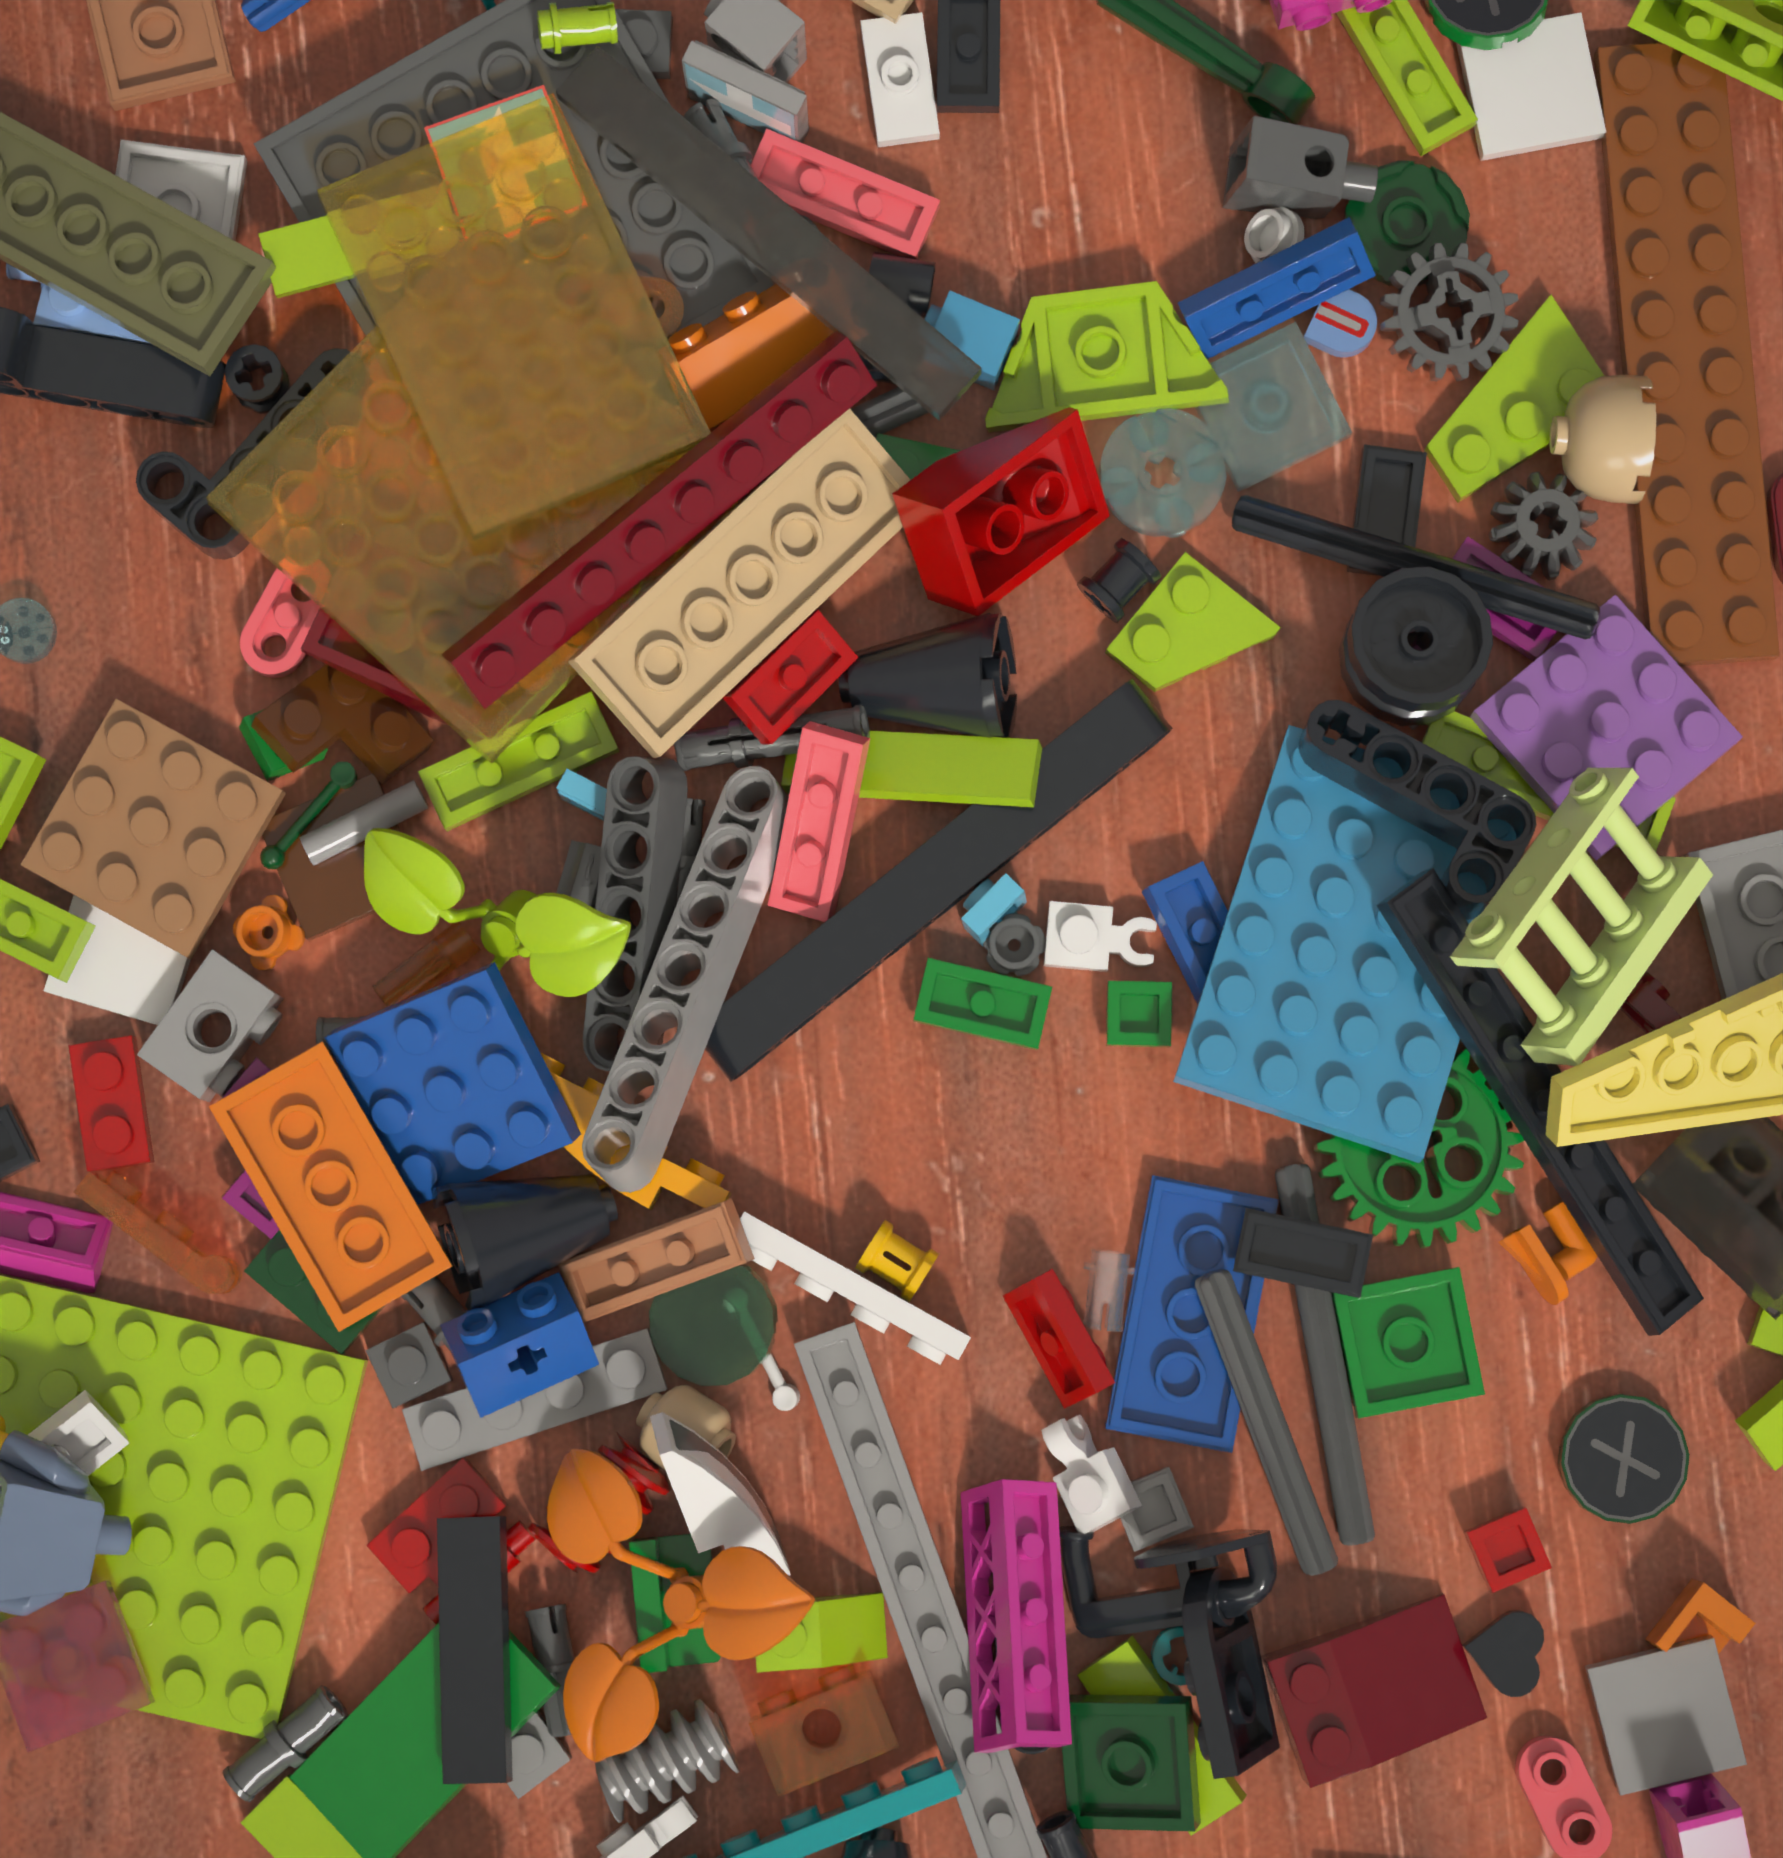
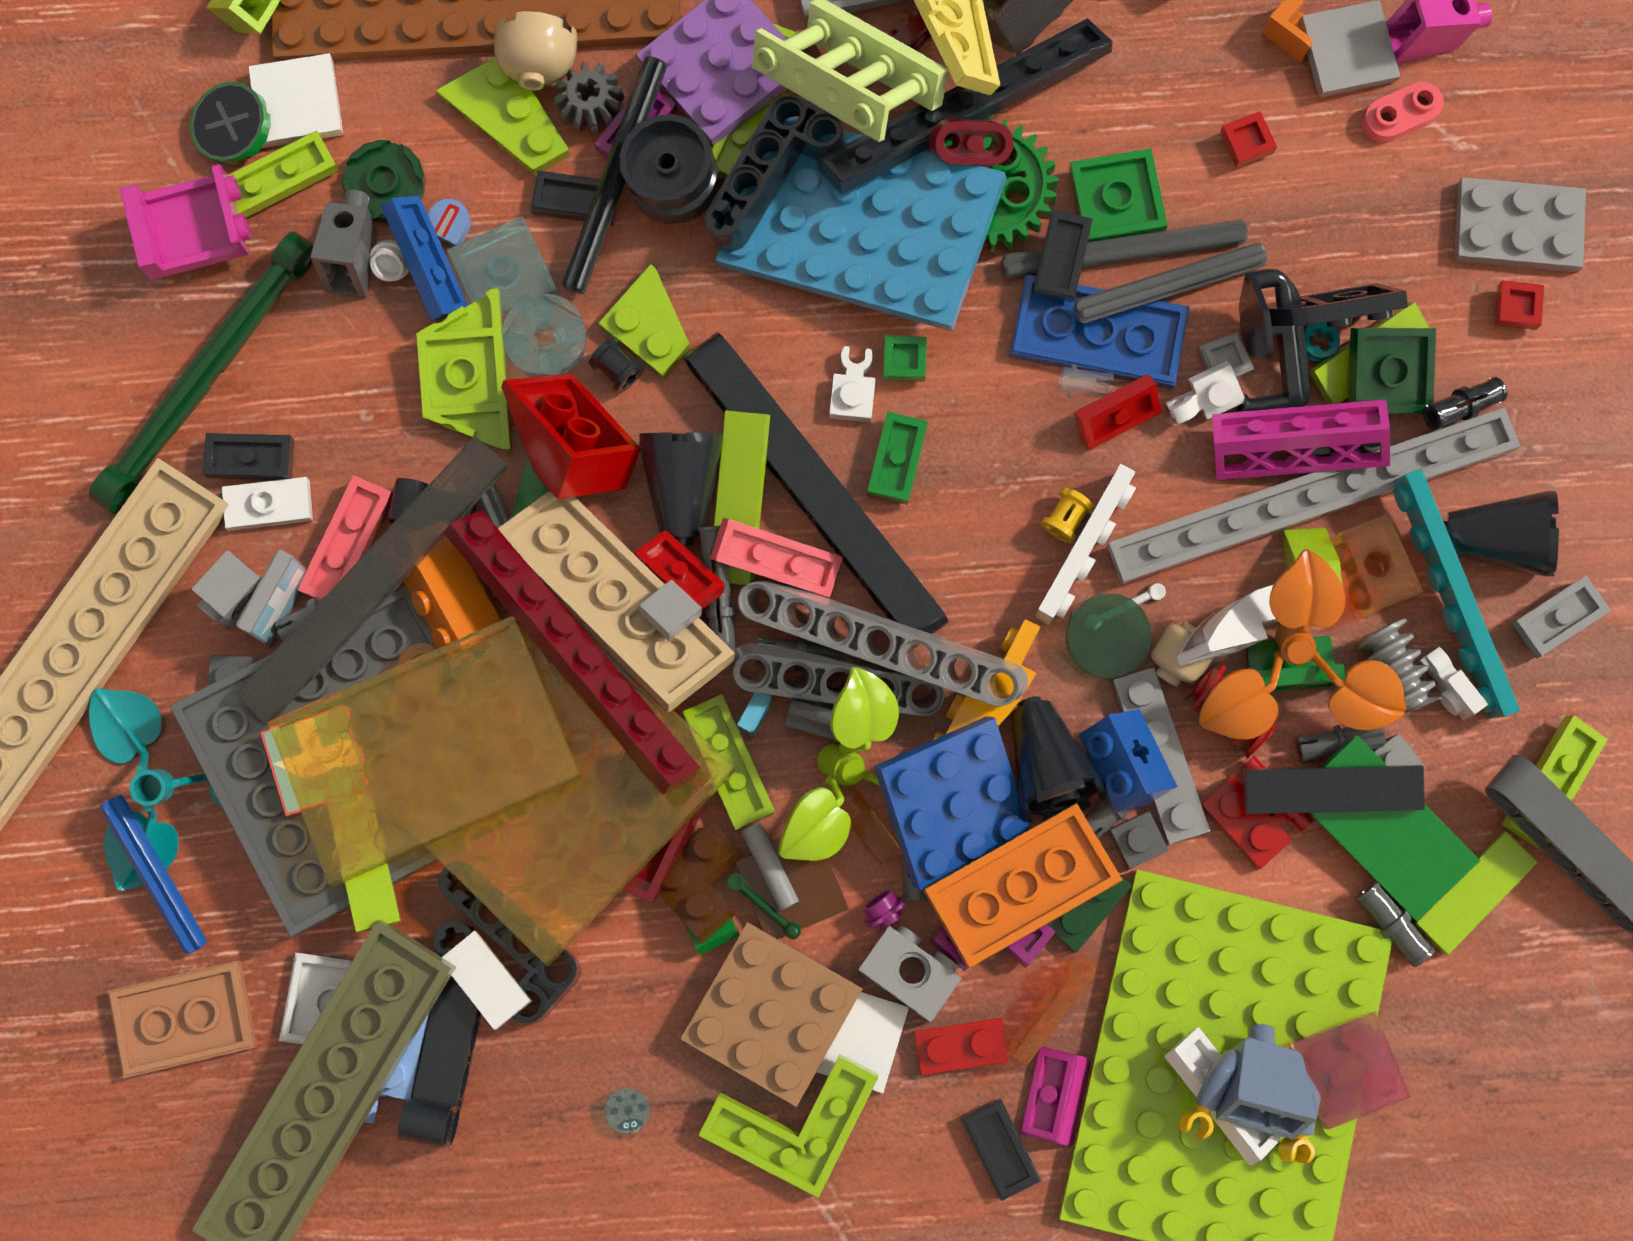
camera: 90 degrees left, 5 degrees down
(193, 420) = (486, 980): none -> white tile
(250, 930) = (840, 947): orange plate -> none
(281, 616) = (626, 919): coral plate -> none
(303, 988) = (883, 910): none -> magenta plate
(576, 26) = (220, 708): lime pin -> none
(657, 1260) = (1069, 667): nougat tile -> none
(722, 661) = (670, 610): none -> light grey tile
(977, 331) = (441, 449): dark azure brick -> none
(990, 904) = (834, 450): medium azure plate -> none
(1031, 945) = (853, 428): dark grey plate -> none
(1190, 920) = (845, 323): blue plate -> none
(1373, 1690) = (1340, 225): dark red slope -> none
(1445, 285) = (464, 148): dark grey gear -> none
(1467, 1101) = (968, 142): none -> dark red plate
(1508, 1651) = (1312, 142): black tile -> none
(1548, 1272) = (1071, 109): orange piece -> none
(1623, 1458) = (1188, 70): black tile -> none

